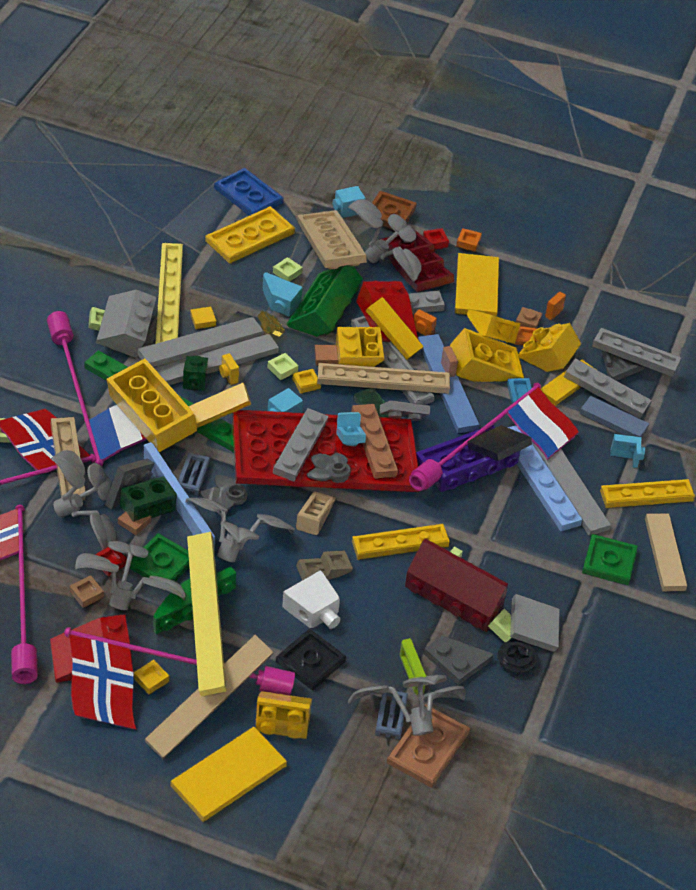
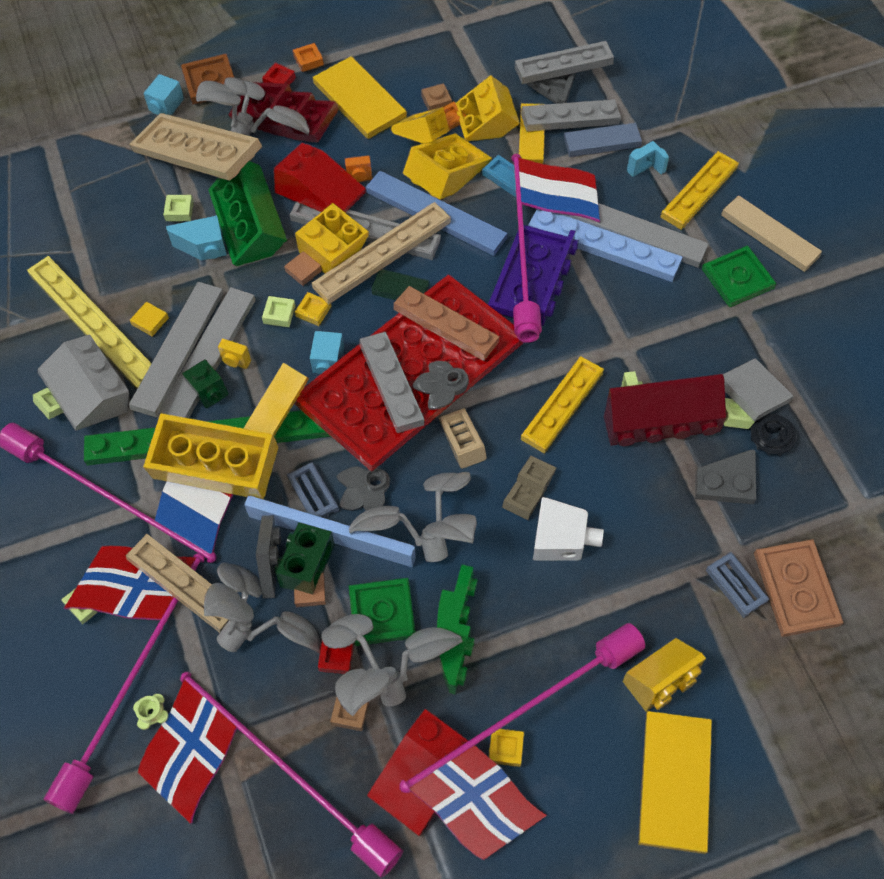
camera: 35 degrees left, 15 degrees up
(197, 708) = (586, 723): tan tile -> none
(206, 615) = (502, 639): light yellow tile -> none
(248, 192) = (55, 155): blue tile -> none
(250, 234) = (102, 198): yellow tile -> none
(270, 323) = (222, 276): clear yellow plate -> none
(311, 659) = (616, 592): black tile -> none
(349, 428) = (419, 331): medium azure bracket -> none
(394, 328) = (344, 194): yellow tile -> none
(401, 409) = (432, 275): light grey plate -> none
(411, 662) = (709, 521): lime tile -> none
(422, 715) = (780, 570): light grey plant -> none
(426, 301) = (336, 144): light grey plate -> none
(449, 361) = (424, 190): nougat tile -> none
(499, 442) = (554, 238): black tile -> none
(555, 305) = (447, 68): orange tile -> none

